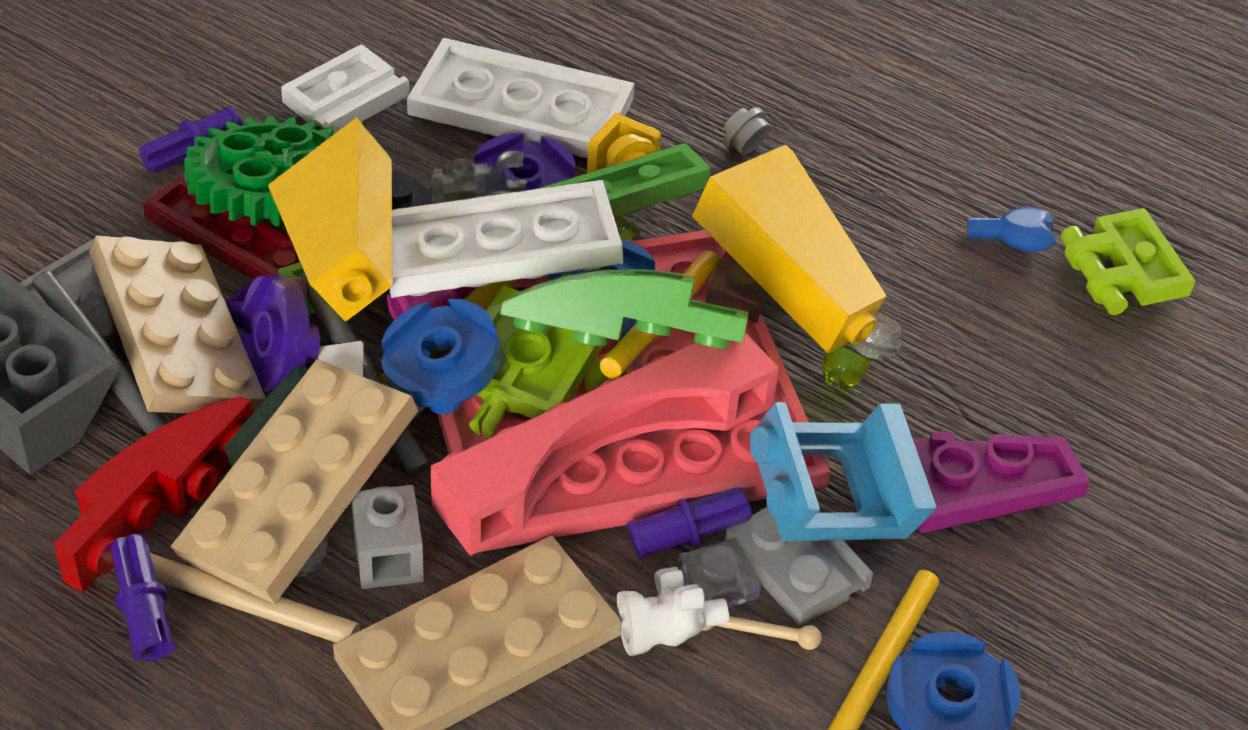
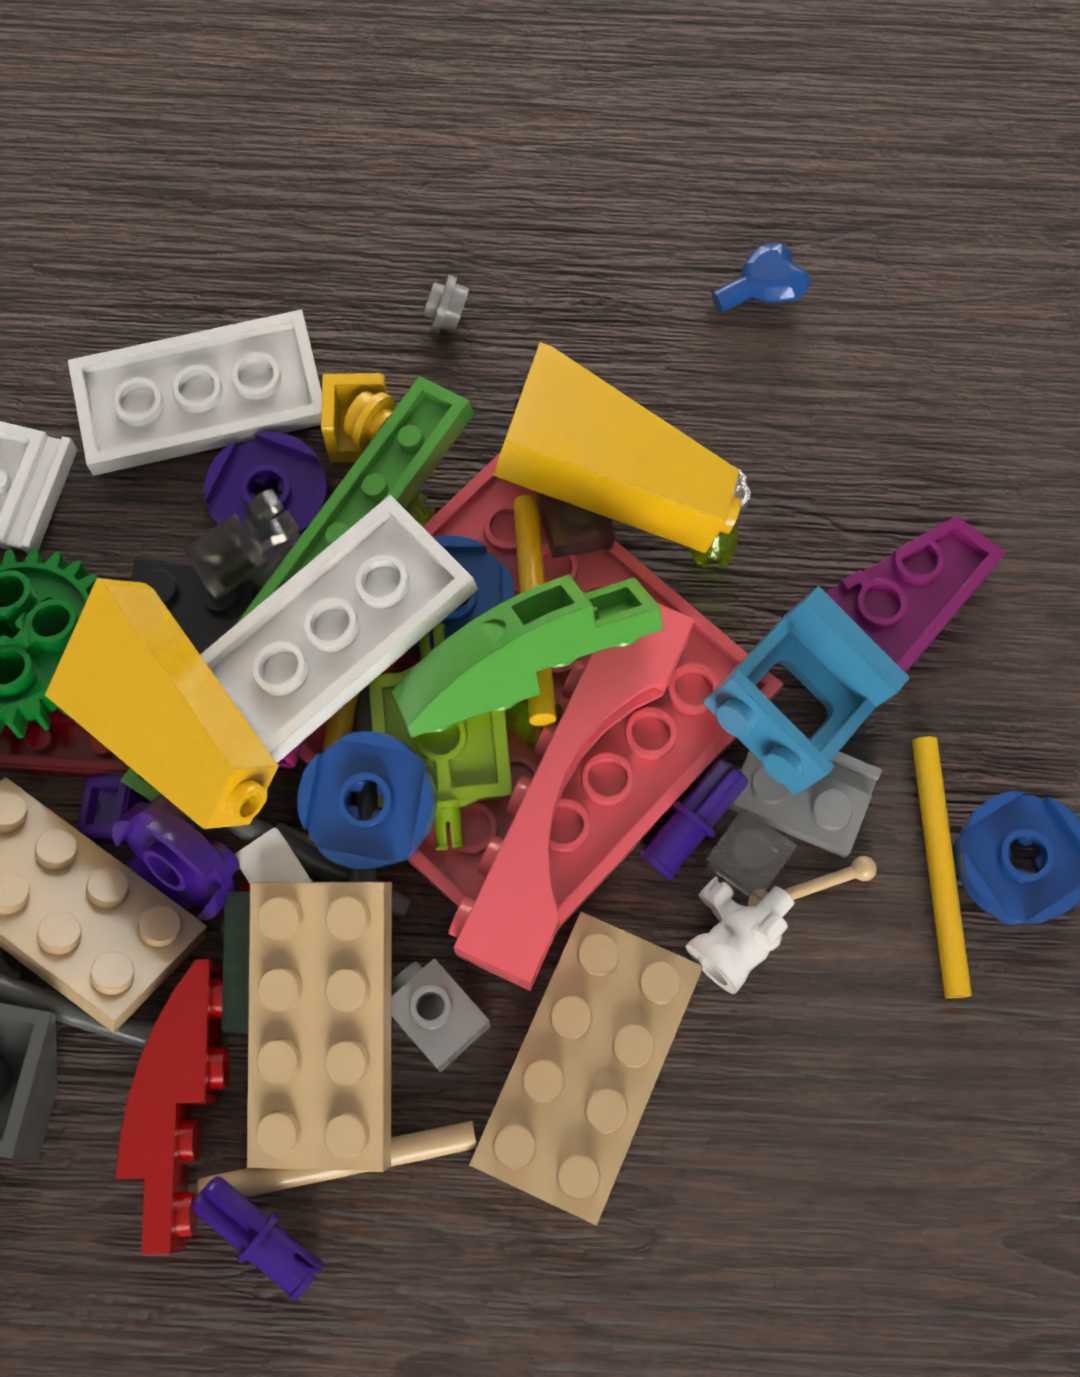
camera: 30 degrees left, 25 degrees up
(1140, 257) = (892, 249): lime plate -> none

